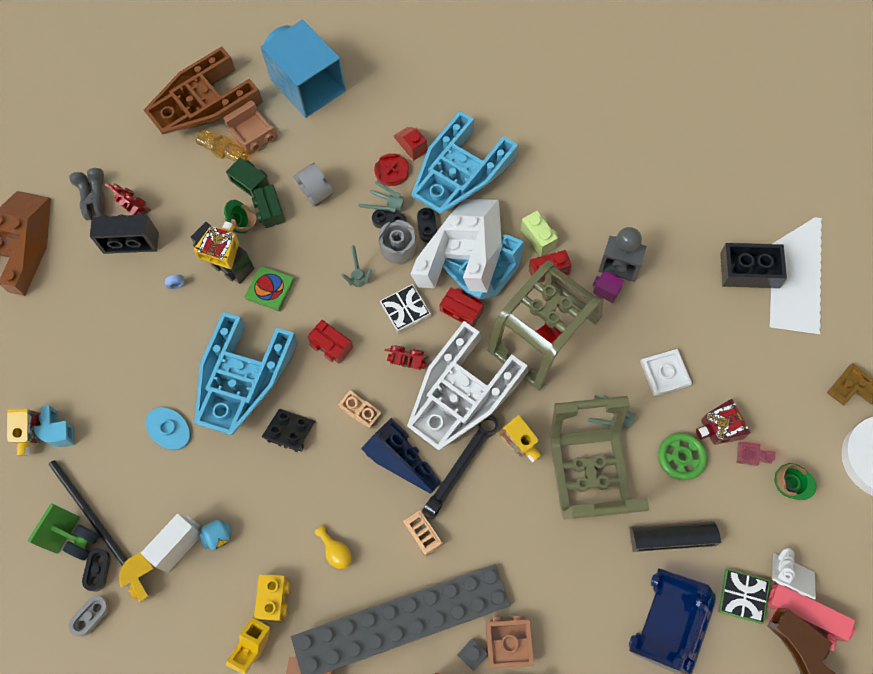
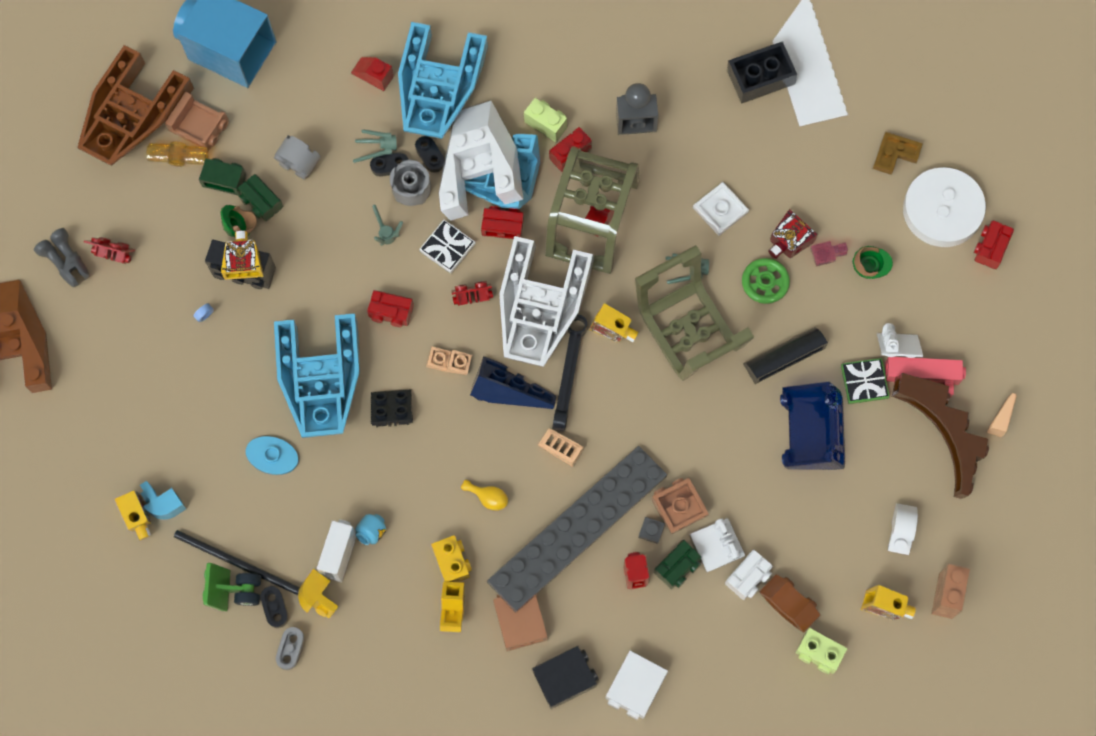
camera: 25 degrees left, 5 degrees up
(124, 234) = (128, 285): black brick -> none
(269, 288) = (302, 280): tile -> none
(391, 169) = (366, 110): red tile -> none
(607, 286) = (633, 146): magenta brick -> none

